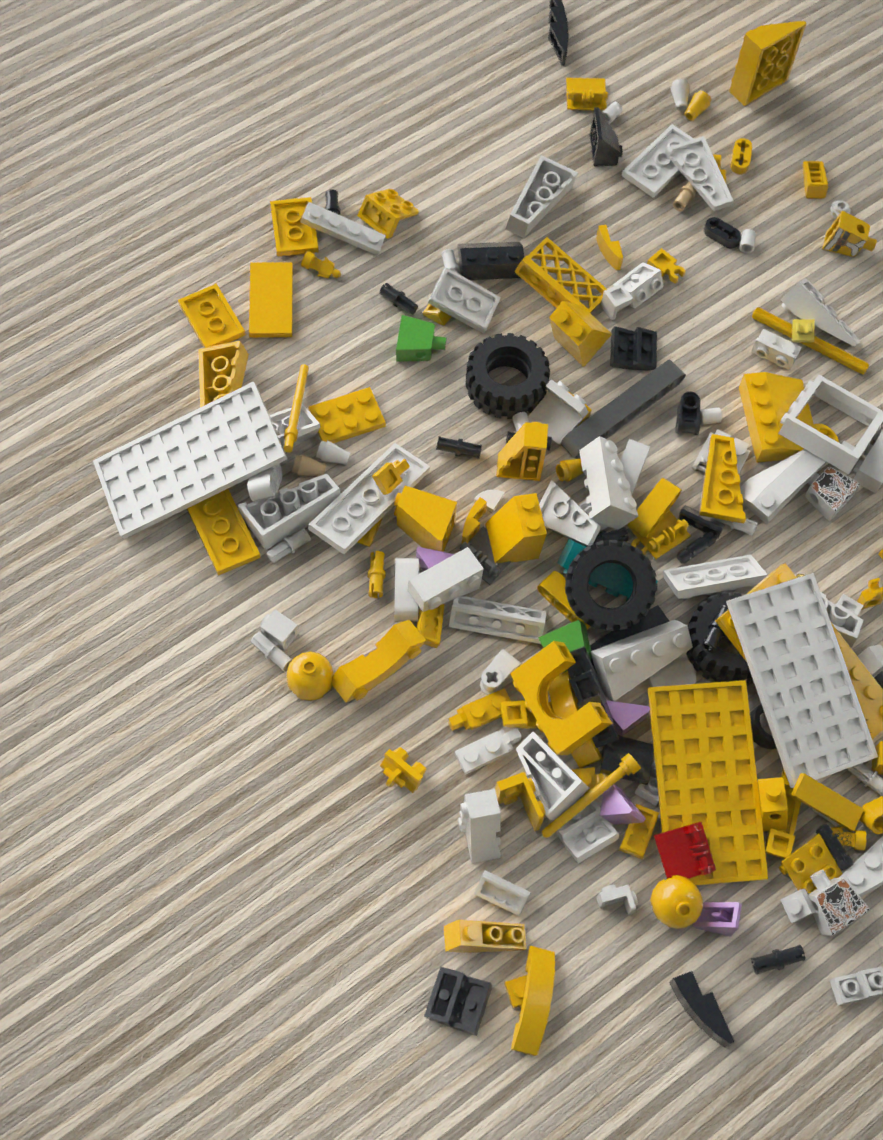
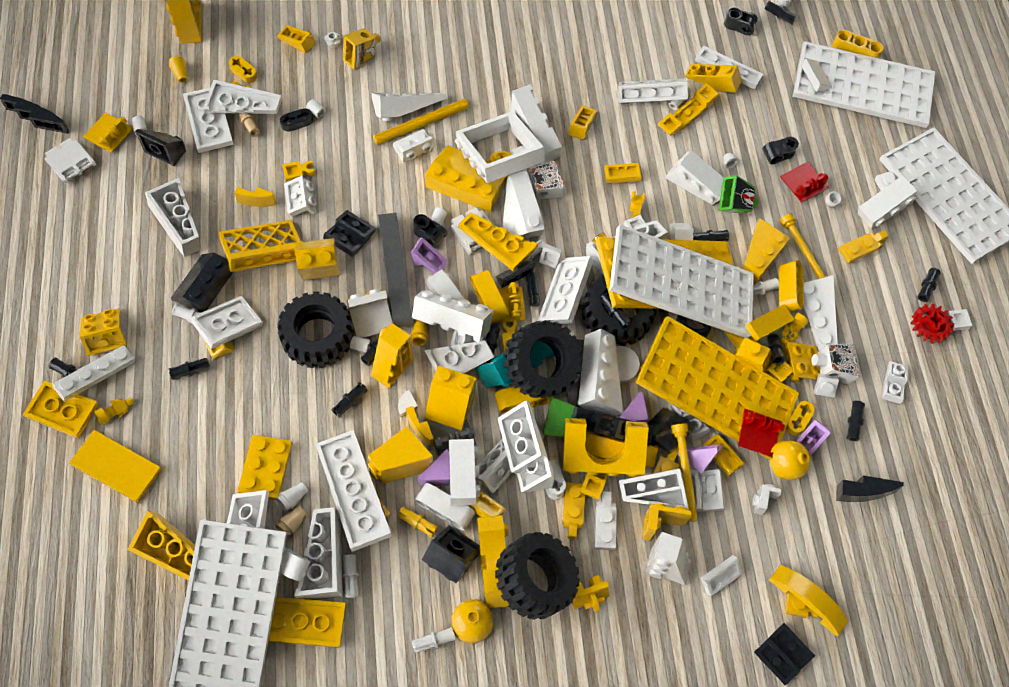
camera: 60 degrees left, 0 degrees up
(211, 317) = (98, 523): yellow plate -> none
(279, 629) = (419, 624): white brick -> none
(291, 431) = (263, 516): yellow bar -> none
(362, 619) = (451, 553): none -> black slope
(389, 477) = (347, 464): yellow plate -> none
(414, 703) = (518, 586): none -> black tyre
(417, 340) = (236, 376): bright green torso -> none
(484, 936) = (747, 608): yellow slope -> none
(508, 625) = (525, 449): none -> white slope
(533, 82) = (69, 160): none -> white plate
(615, 299) = (304, 220): white panel -> none
(657, 429) = (426, 255): none -> lavender slope
(680, 91) = (160, 73): white cone -> none
(739, 890) = (804, 420): none -> yellow beam
(746, 542) = (550, 256): none -> white tile
(800, 827) = (776, 349): none -> black pin
(803, 330) = (414, 119): light yellow tile -> none
(835, 847) = (803, 338): black axle -> none

